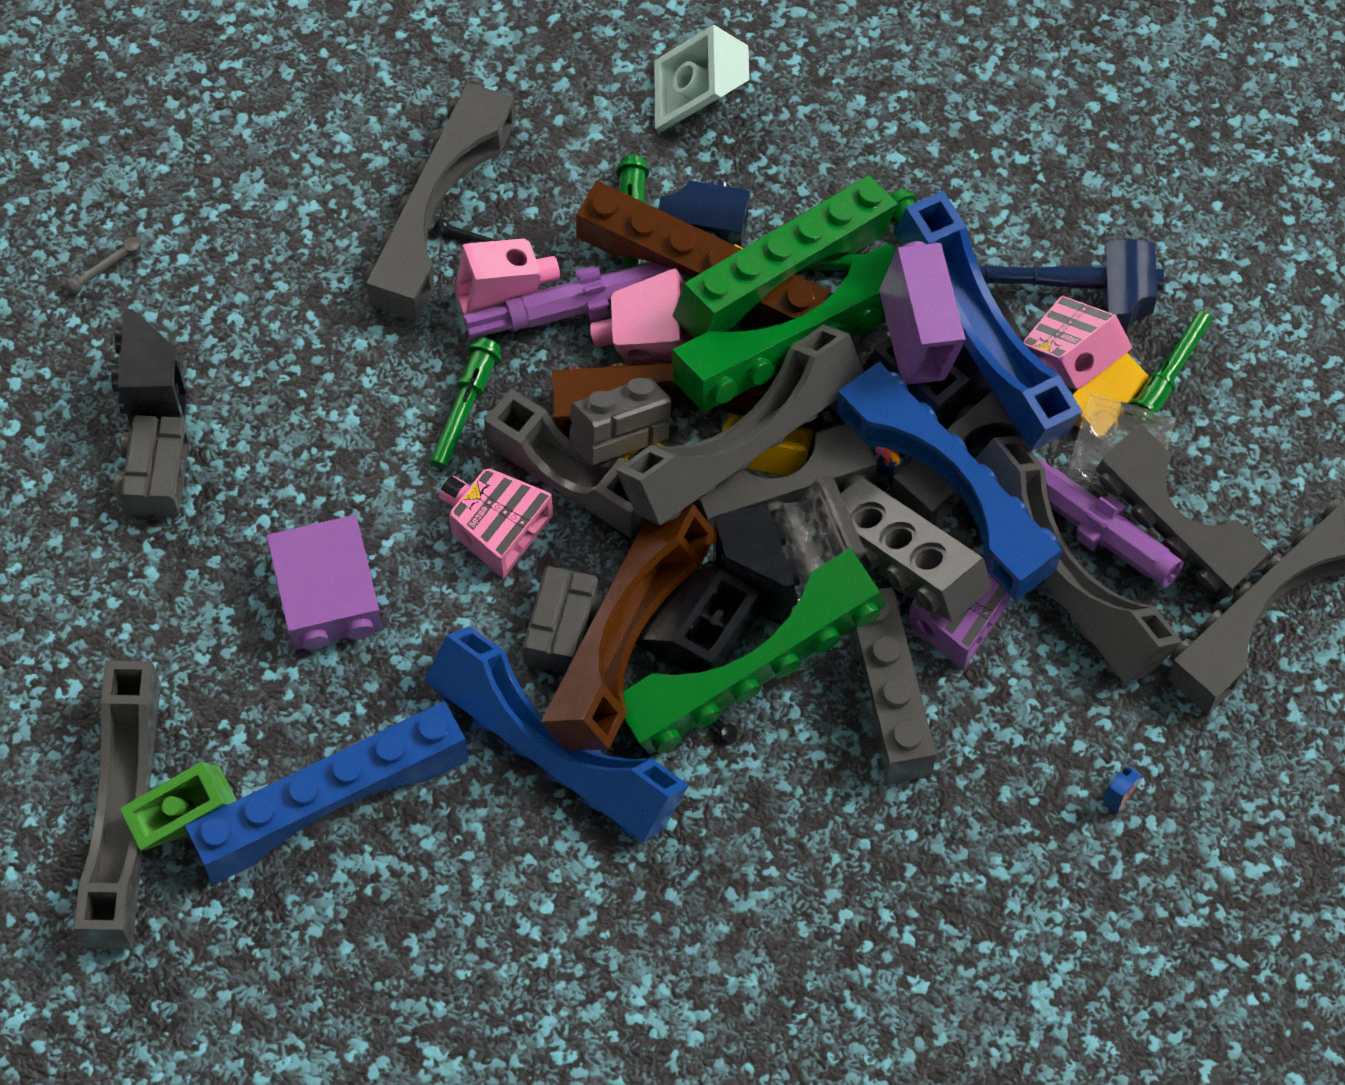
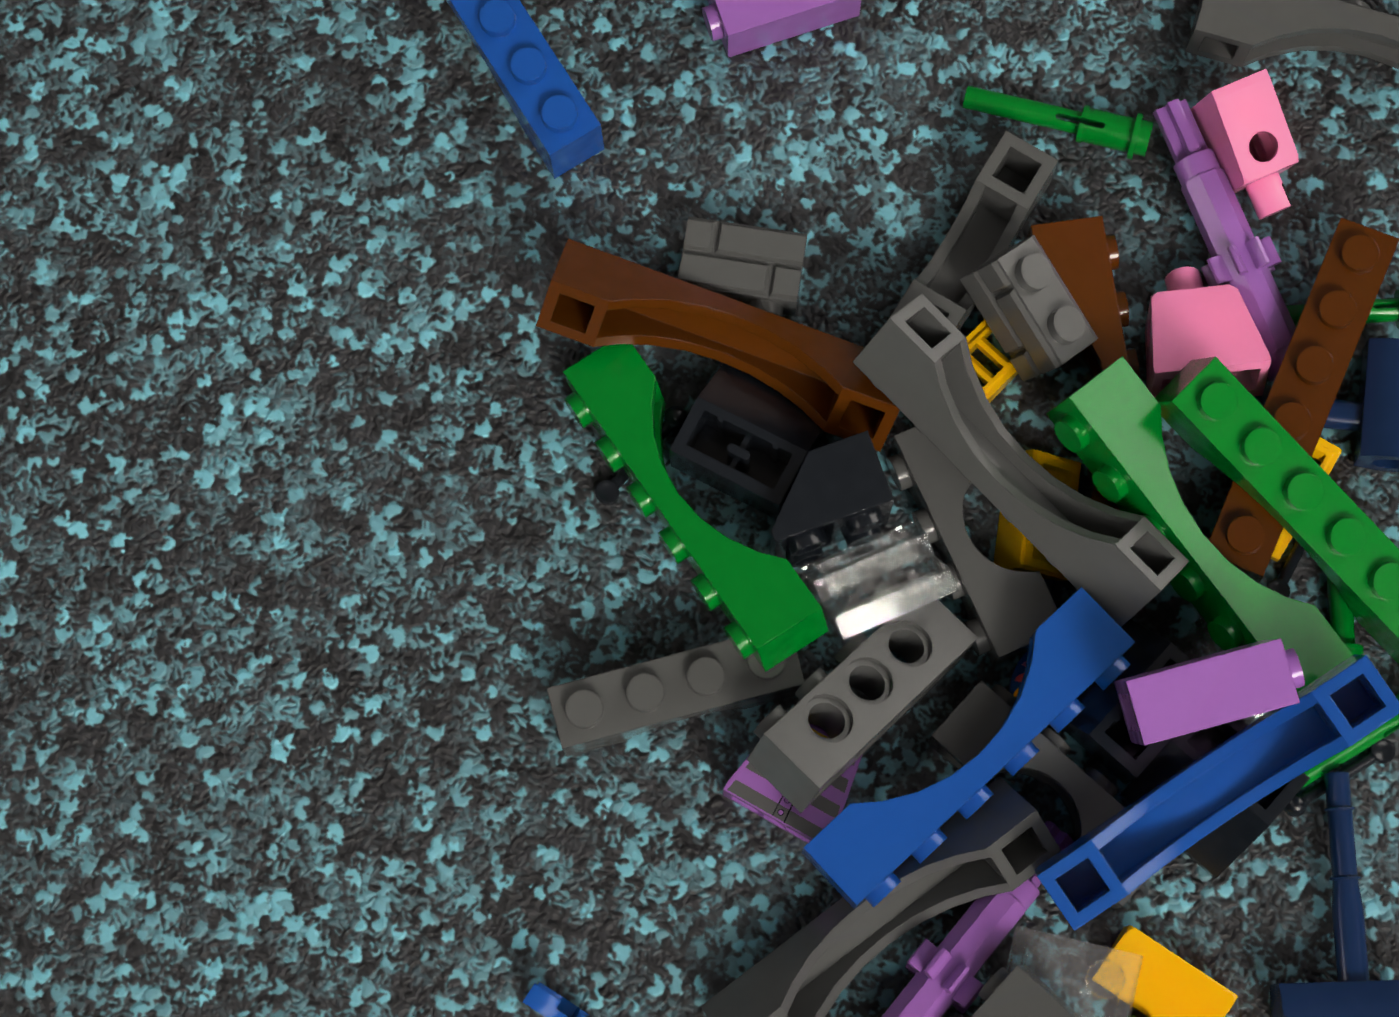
camera: 90 degrees right, 15 degrees up
(443, 227) = (1333, 66): black hinge -> none
(481, 682) = (638, 177): blue arch -> none
(496, 516) = (885, 171): bright pink torso -> none
(1077, 341) = (1220, 928): bright pink torso -> none

